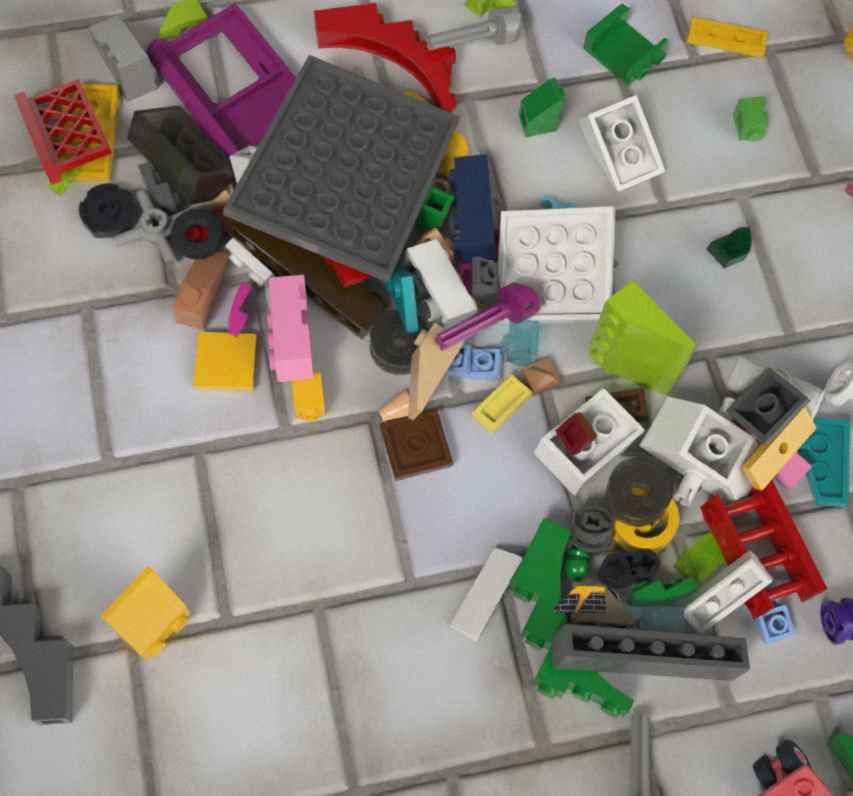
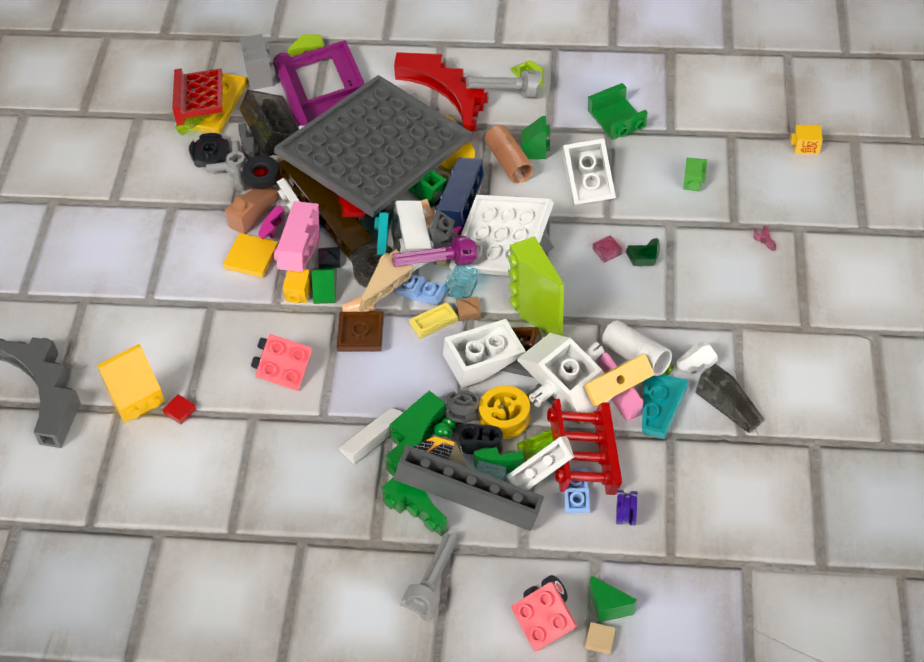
camera: 25 degrees right, 15 degrees down
(216, 622) = (179, 409): none -> red tile
(329, 518) = (281, 361): none -> coral plate
(332, 341) = (329, 257): none -> black tile
(341, 383) = (324, 285): none -> green slope
(518, 138) = (509, 154): none -> nougat piece
(576, 433) = (469, 337): dark red tile -> none
(641, 474) = (502, 386): clear smoke wheel -> none
(680, 248) = (607, 248): none -> clear pink plate
(727, 37) = (700, 120): yellow tile -> none
(767, 406) = (615, 346): dark grey slope -> none

